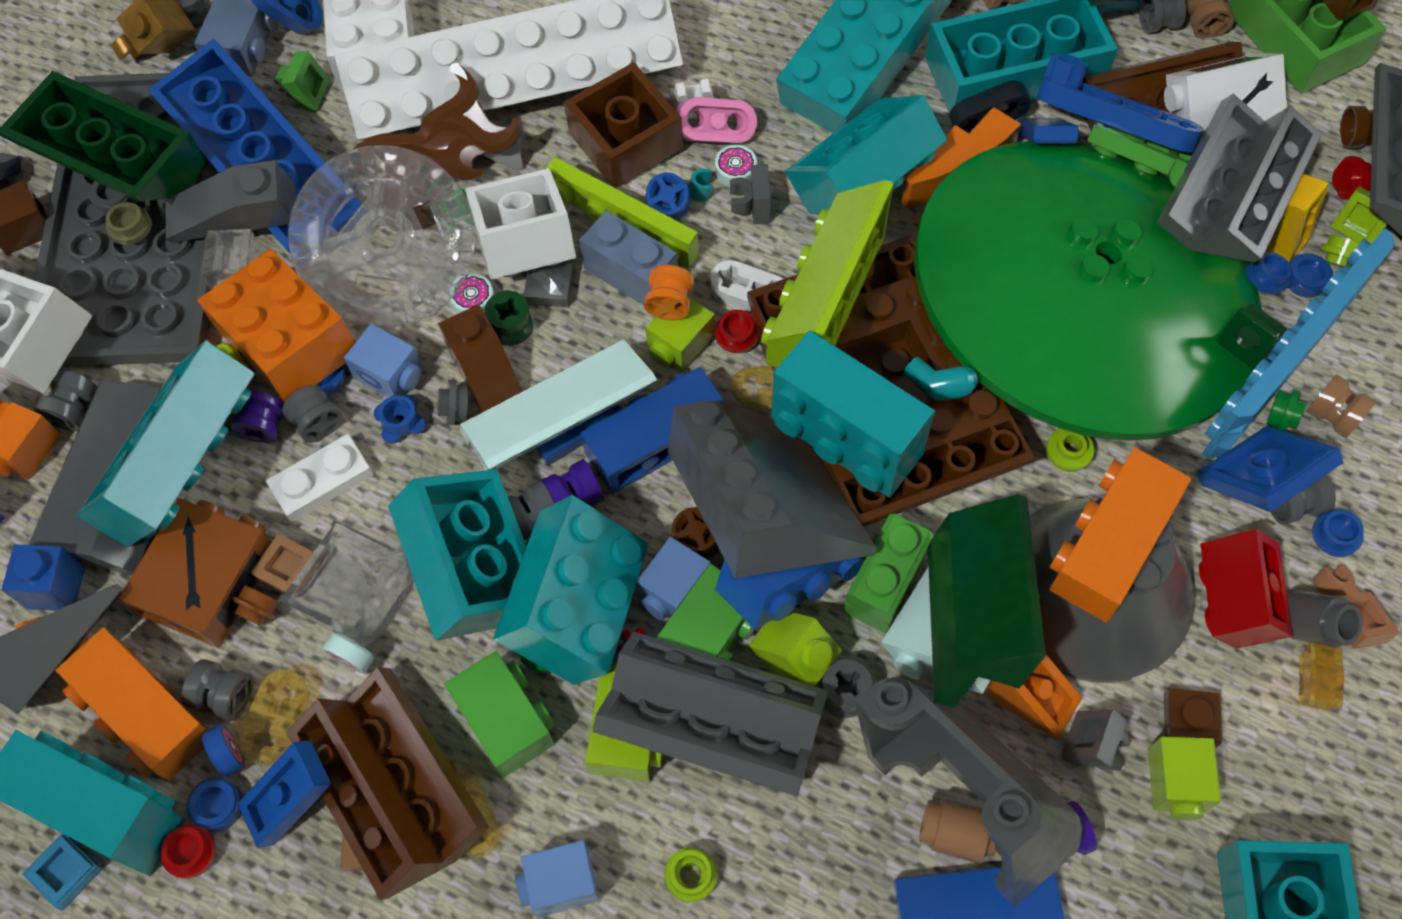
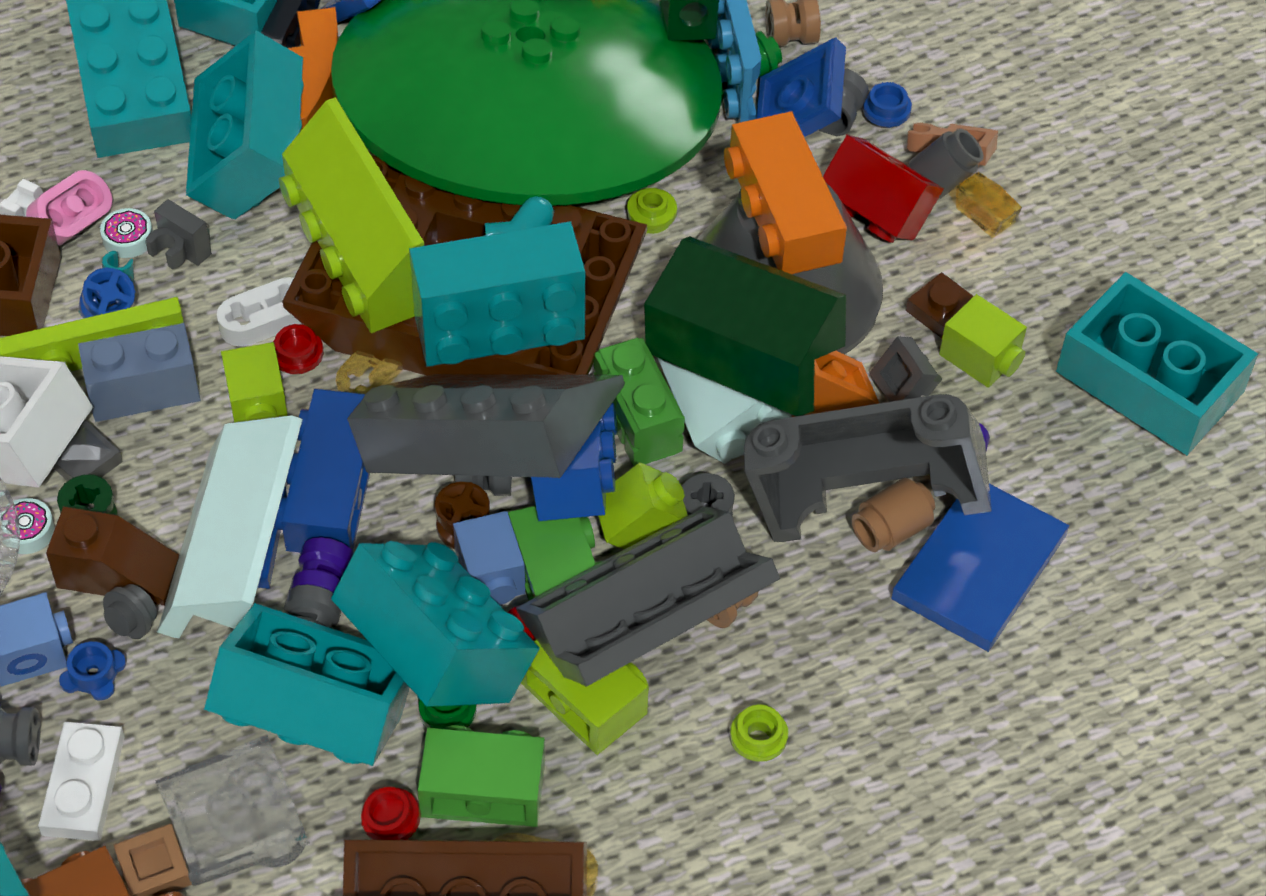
camera: 55 degrees left, 10 degrees down
(348, 653) = (299, 864): light aqua tile -> none
(427, 677) = (390, 814): none -> red plate
(557, 879) = (676, 830): medium blue brick -> none
(669, 292) = (226, 352): orange wheel -> none

